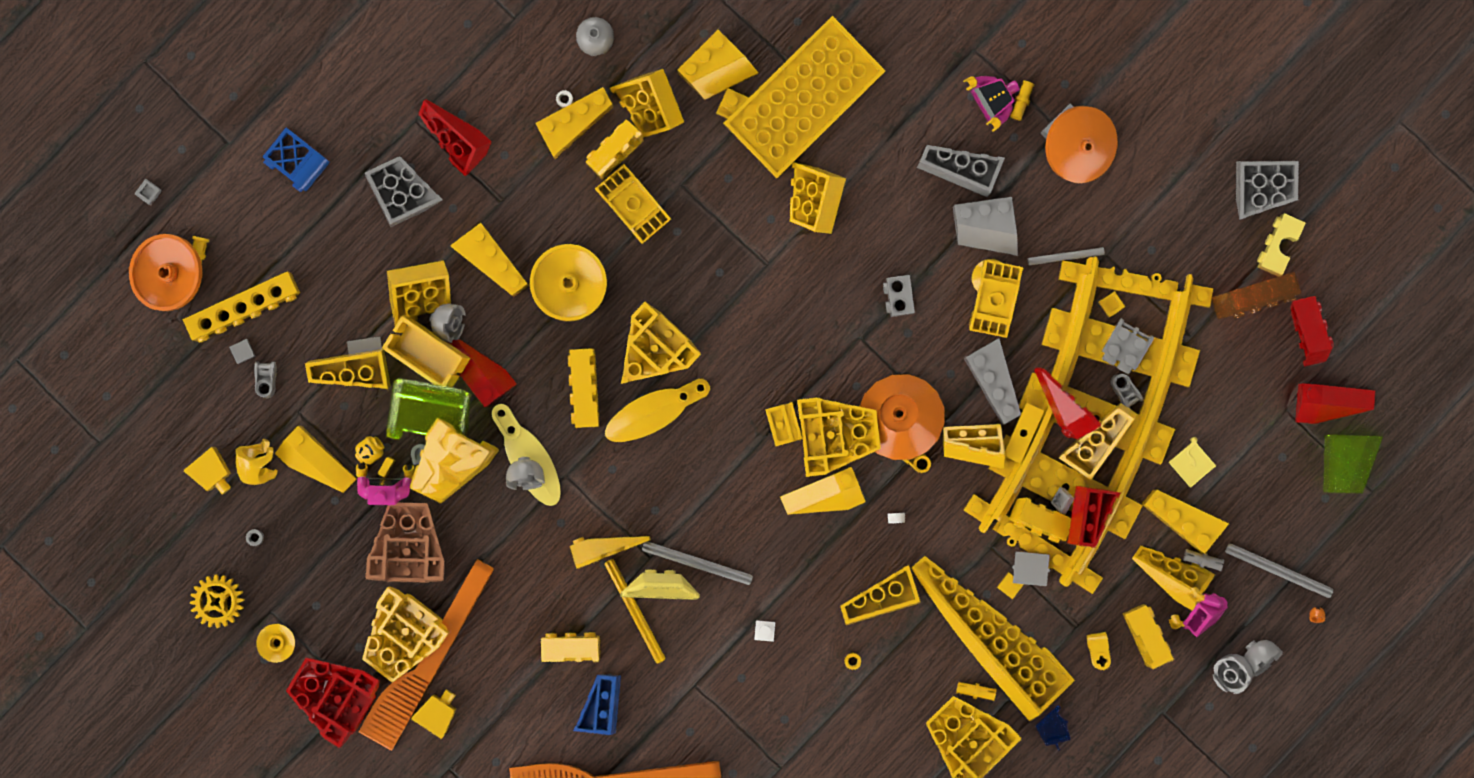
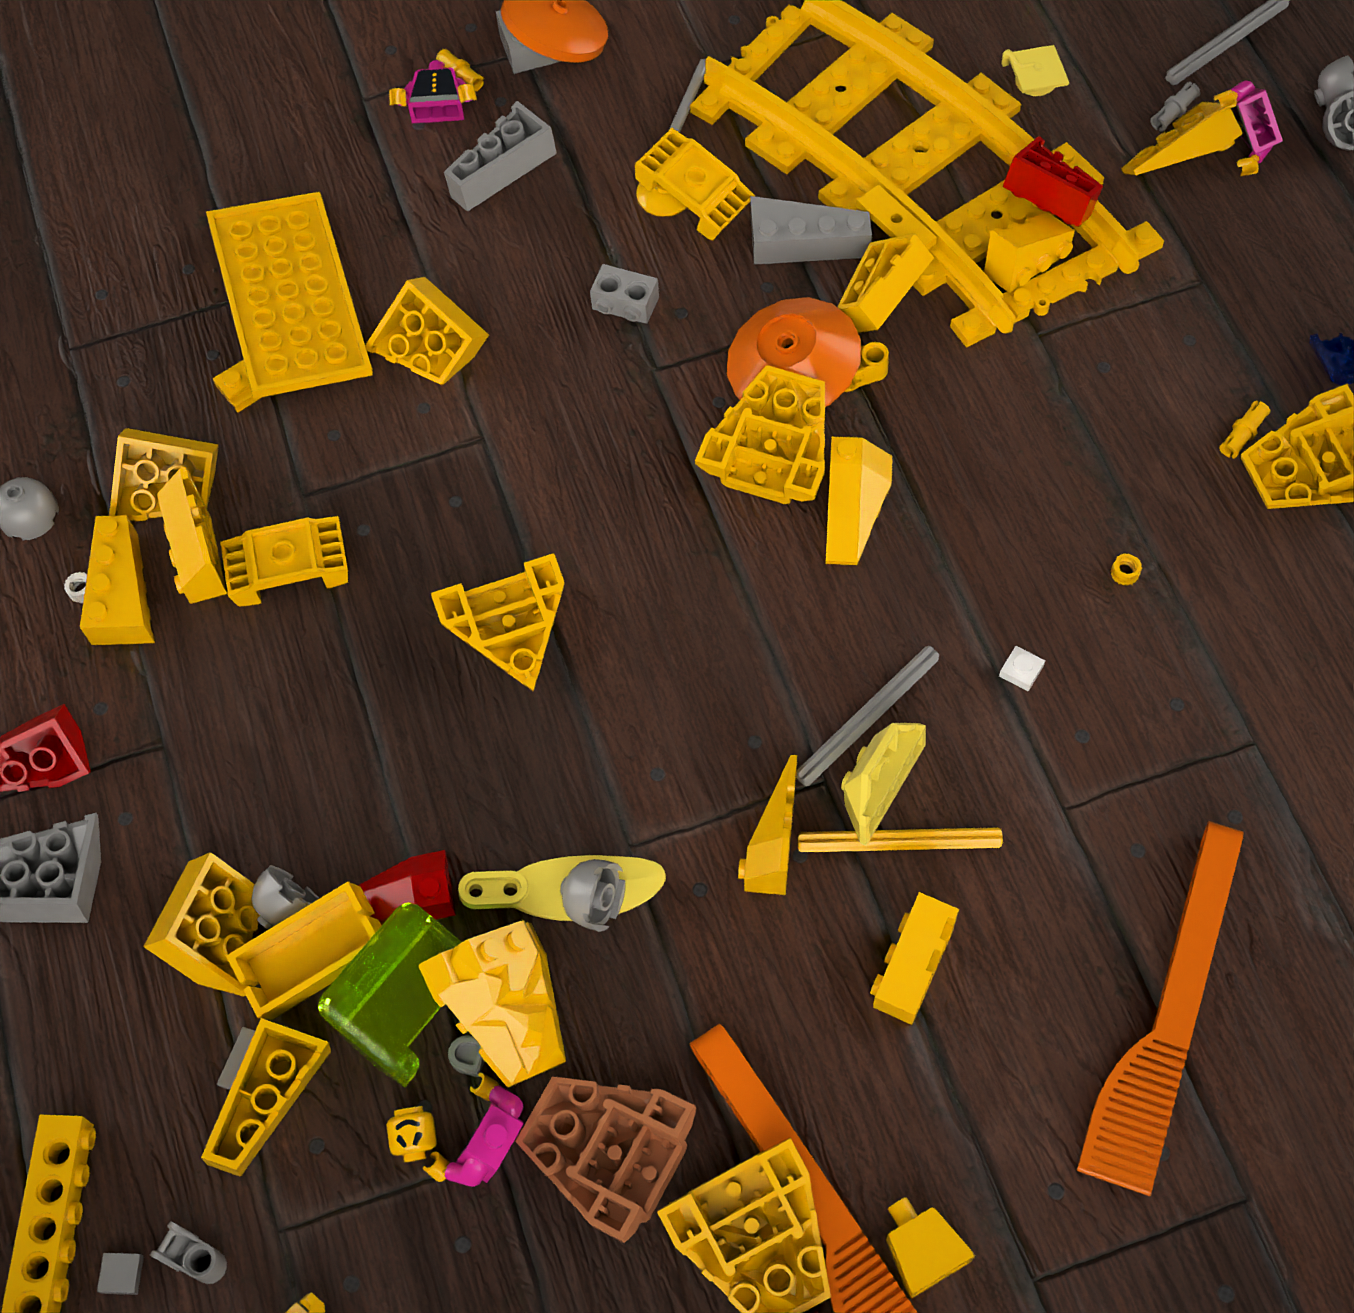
camera: 55 degrees left, 25 degrees down
(309, 457) = (365, 1244): yellow wedge -> none
(386, 467) = (455, 1118): yellow tile -> none
(487, 256) = (232, 791): yellow wedge -> none
(568, 282) = (338, 695): yellow dish -> none
(584, 386) = (506, 745): yellow wedge -> none
(601, 707) = (1036, 957): blue wedge -> none
(653, 412) = (602, 672): yellow plant -> none
(716, 67) = (174, 377): yellow wedge -> none
(783, 424) = (721, 507): yellow plate -> none
(886, 596) = (1047, 477): yellow wedge -> none
(896, 517) = (936, 423): white axle -> none
(987, 225) = (591, 162): light grey wedge -> none
(1008, 587) = (1105, 331): yellow tile -> none
(1011, 658) = (1235, 363): yellow wedge -> none
(1031, 568) = (1093, 291): light grey piece -> none
(1062, 500) = (1014, 211): light grey tile -> none
(1070, 416) = (894, 149): red wedge -> none
(1091, 450) = (955, 140): yellow wedge -> none
(1099, 646) = (1248, 261): yellow piece -> none
(1111, 304) = (778, 80): yellow tile -> none
(1126, 347) = (843, 76): light grey plate -> none
(1127, 391) = (898, 101): light grey piece -> none
(1148, 636) = (1259, 196): yellow wedge -> none
(1187, 521) = (1110, 102): yellow wedge -> none
(1317, 615) = (1308, 20): orange hinge -> none

